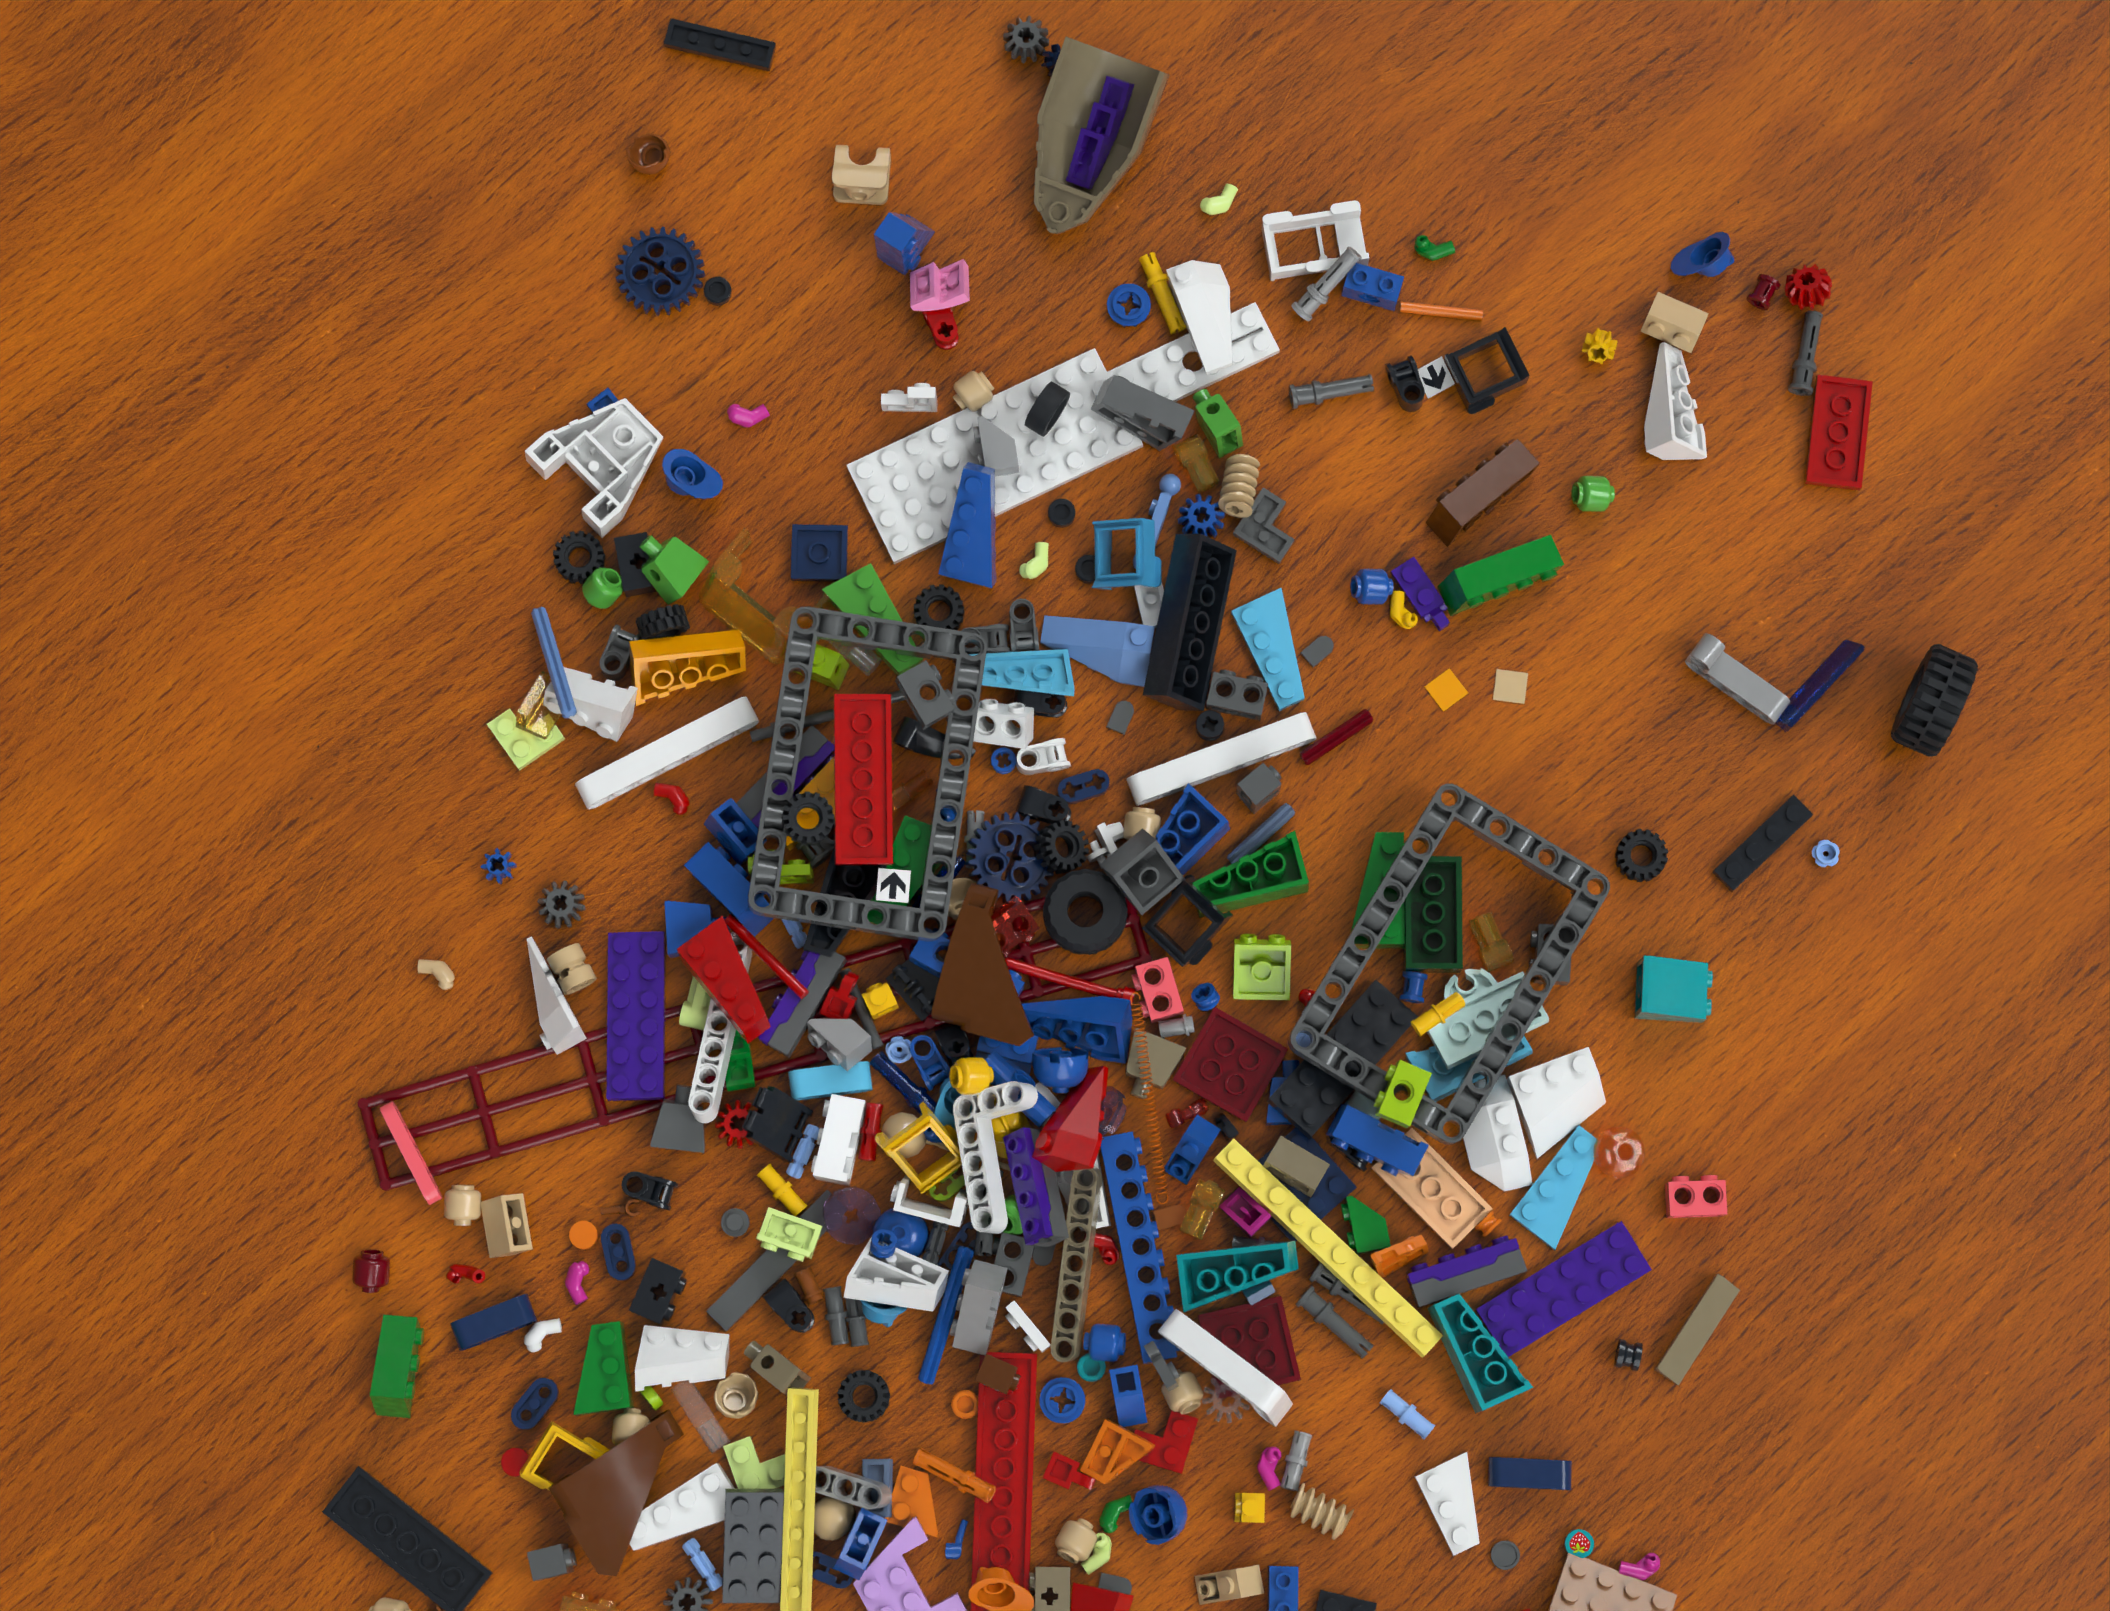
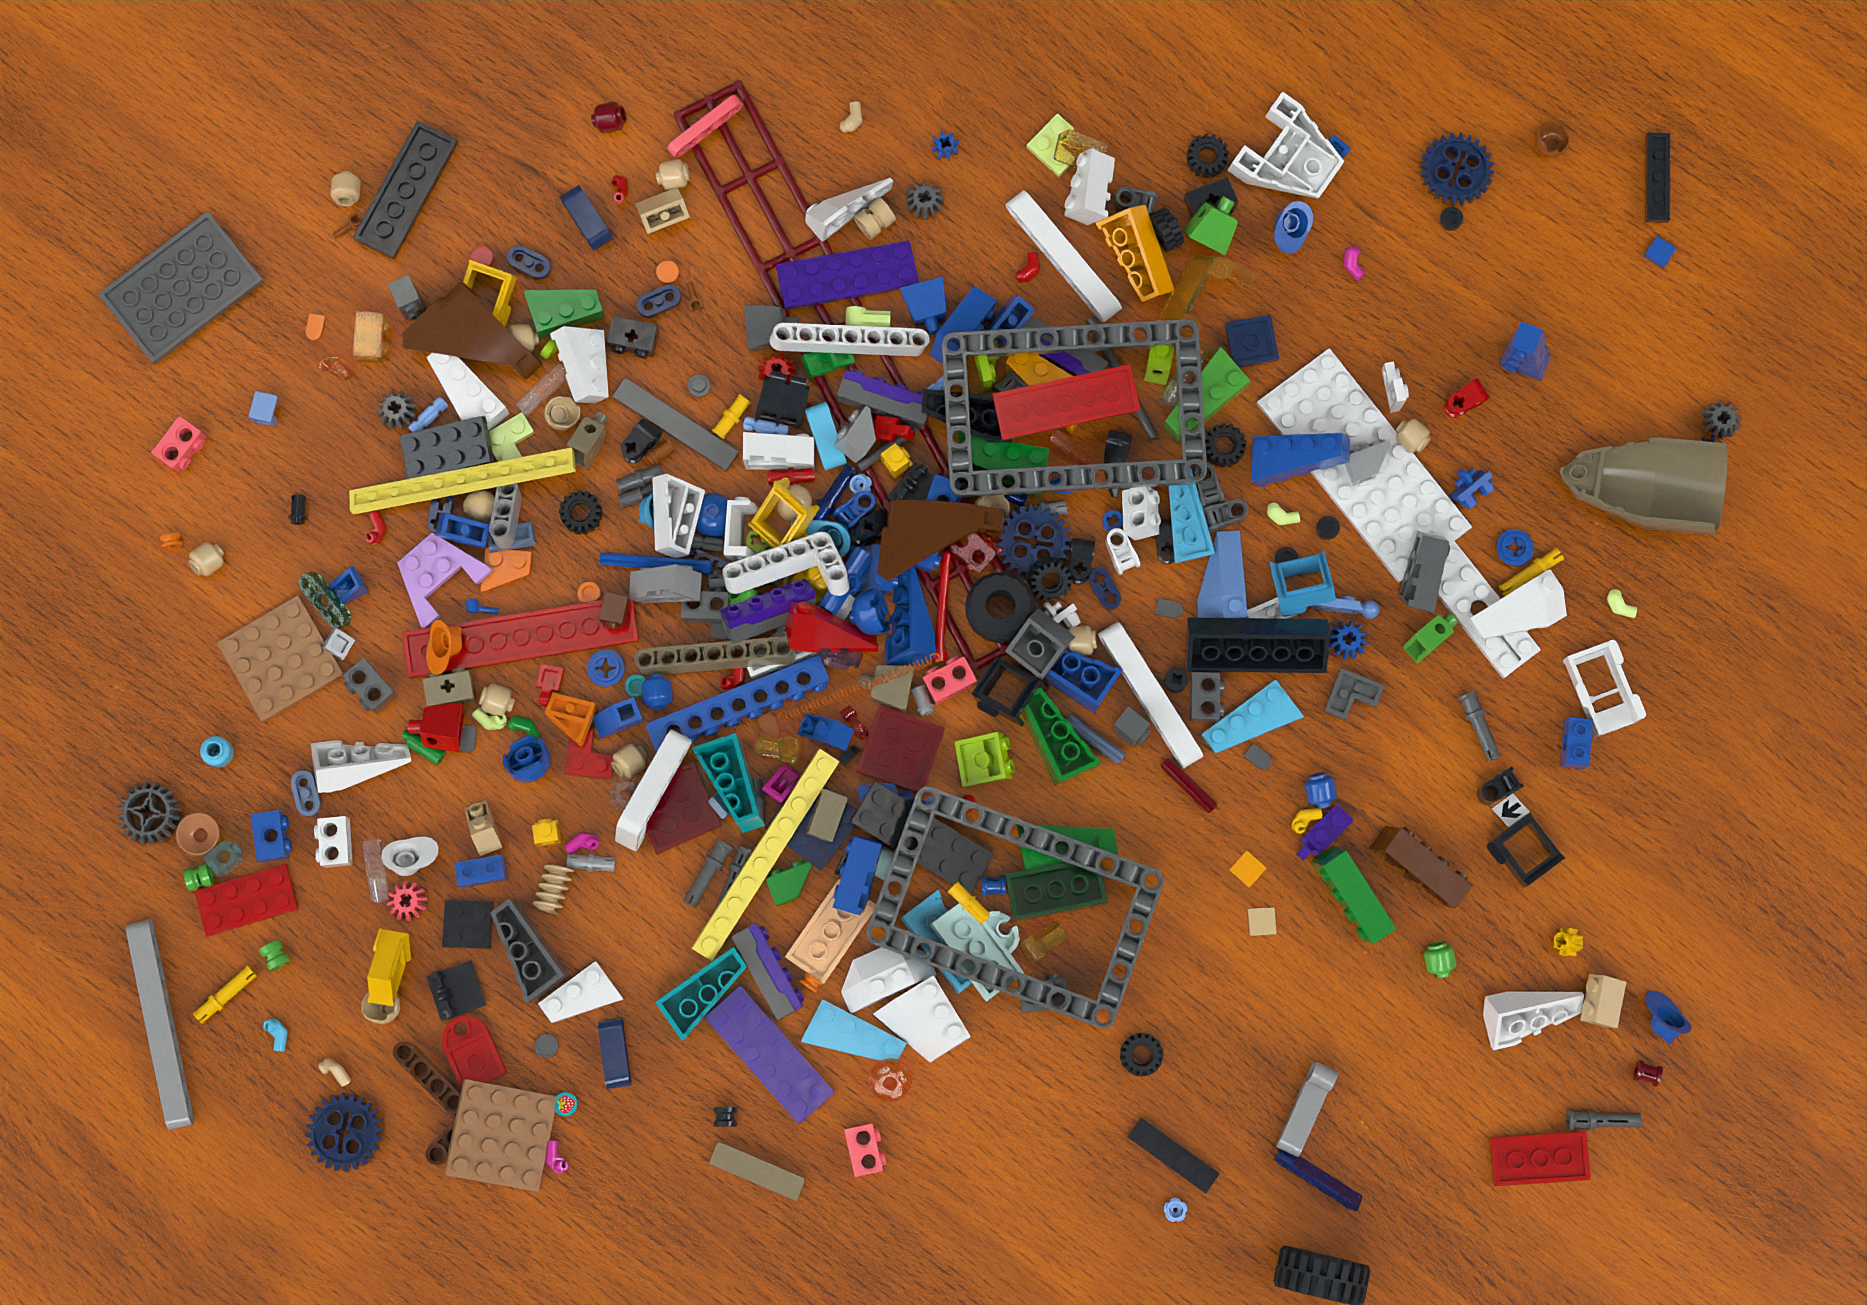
camera: 75 degrees right, 0 degrees up
(396, 1366) = (538, 151): green wedge -> none
(538, 1331) = (586, 254): white arm -> none
(553, 662) = (1115, 150): medium blue axle -> none
(573, 1281) = (630, 272): dark pink arm -> none
(602, 588) = (1185, 177): bright green head -> none
(651, 1189) = (712, 318): black piece -> none
(722, 974) = (893, 327): red wedge -> none
(766, 956) = (911, 364): red bar -> none
(789, 1233) = (696, 427): yellowish green bracket -> none
(802, 835) = (1021, 378): black tyre -> none
(810, 62) = (1660, 252): none -> blue tile
(848, 1199) = (732, 467): plate -> none
(861, 182) = (1567, 311): tan piece -> none
(883, 1236) = (706, 497): blue bush -> none
(893, 885) = (986, 445): white sticker -> none
(926, 711) = (1153, 425): dark grey brick -> none
(939, 288) = (1493, 390): bright pink slope -> none
(964, 1480) = (526, 603): orange pin -> none
(971, 1075) = (846, 539): yellow head -> none
(1020, 1319) = (664, 621): white plate -> none
(1044, 340) = (1469, 483): none -> blue hips
(1047, 408) = (1409, 494): black tyre -> none
(1101, 131) = (1653, 494): dark purple slope -> none
(1166, 1371) = (640, 741): dark grey plate -> none
(1193, 456) = (1397, 624): clear yellow piece -> none
(1205, 996) = (951, 719): blue bush -> none
(1239, 485) = (1380, 664): tan piece -> none
(1318, 293) = (1559, 698): light grey pin -> none
(1392, 1554) = (531, 956): none -> dark grey wedge
(1397, 1256) = (770, 913): orange wing -> none
(1407, 1414) = (644, 945): light blue pin -> none
(1415, 1082) = (908, 894): lime brick -> none
(1430, 250) = (1618, 788): green arm -> none
(1441, 311) = (1569, 805): orange bar -> none
(1672, 990) = (1033, 1100): teal slope -> none
(1808, 287) = (1660, 1110): red gear -> none

